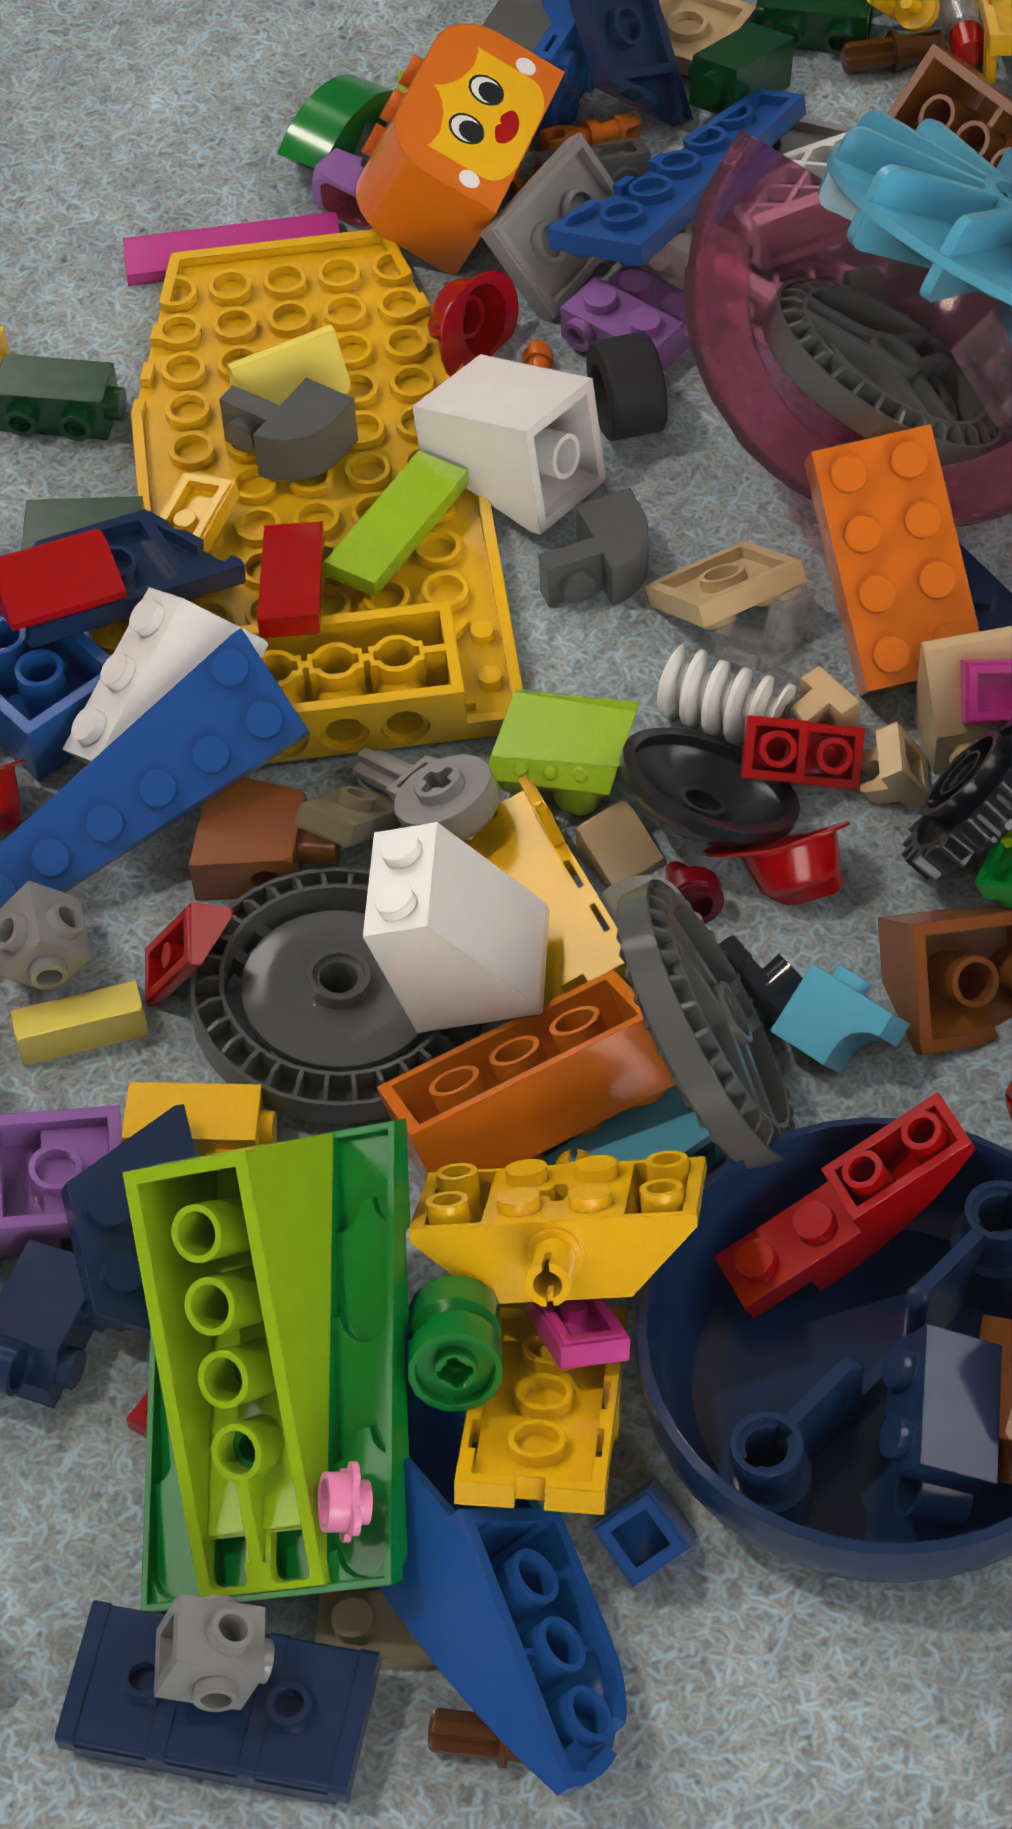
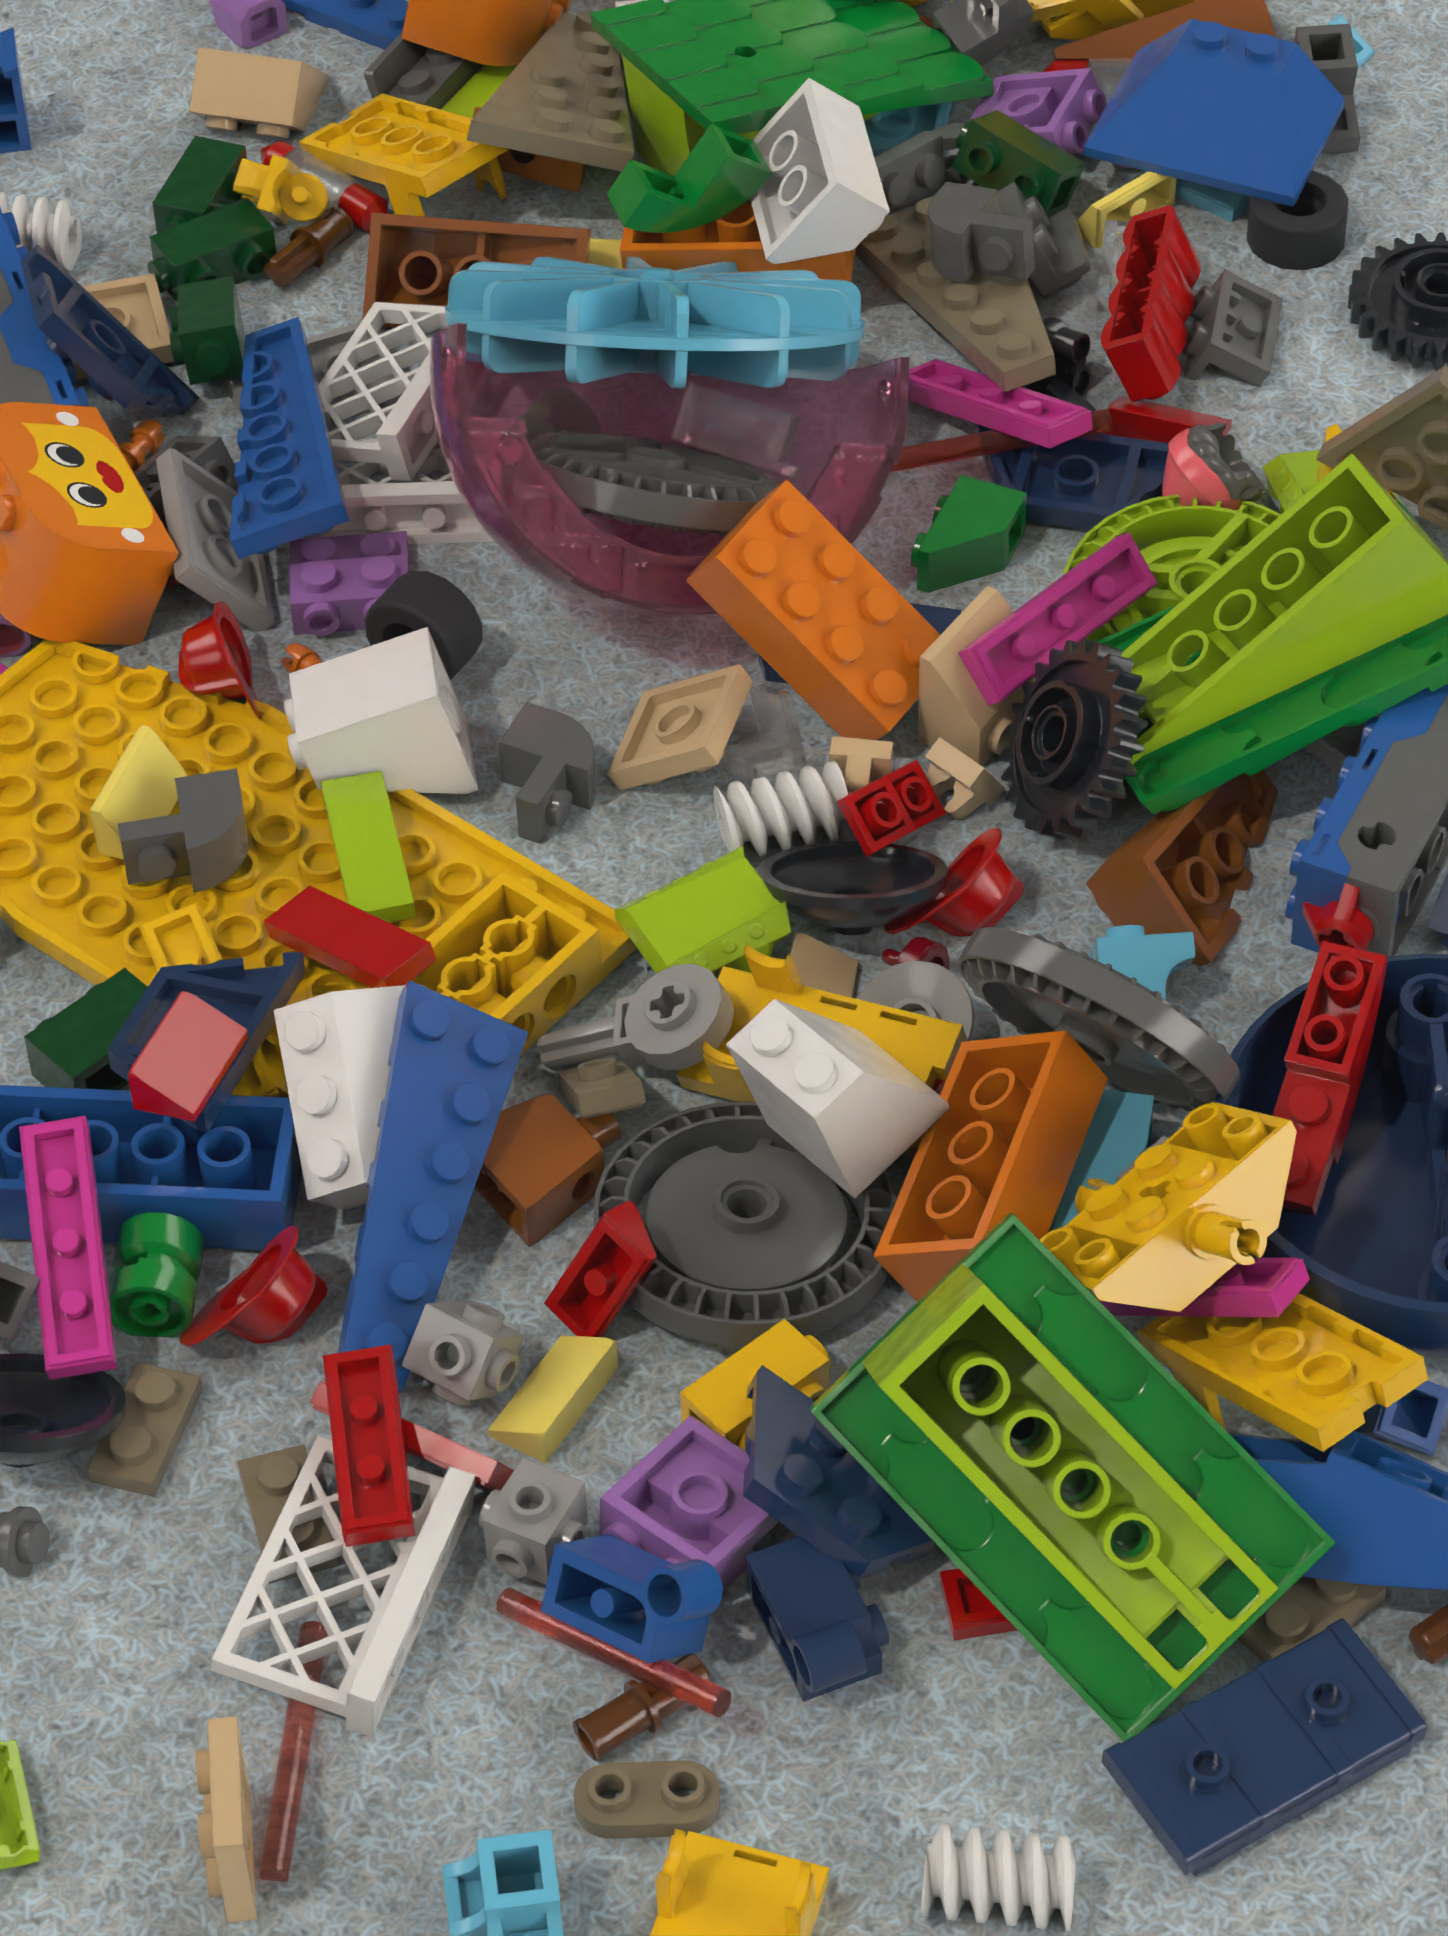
camera: 45 degrees left, 5 degrees down
(212, 1652) = (1255, 1694): light grey brick -> none
(344, 1502) = (1252, 1507): bright pink plate -> none
(454, 1343) = (1202, 1348): green wheel -> none

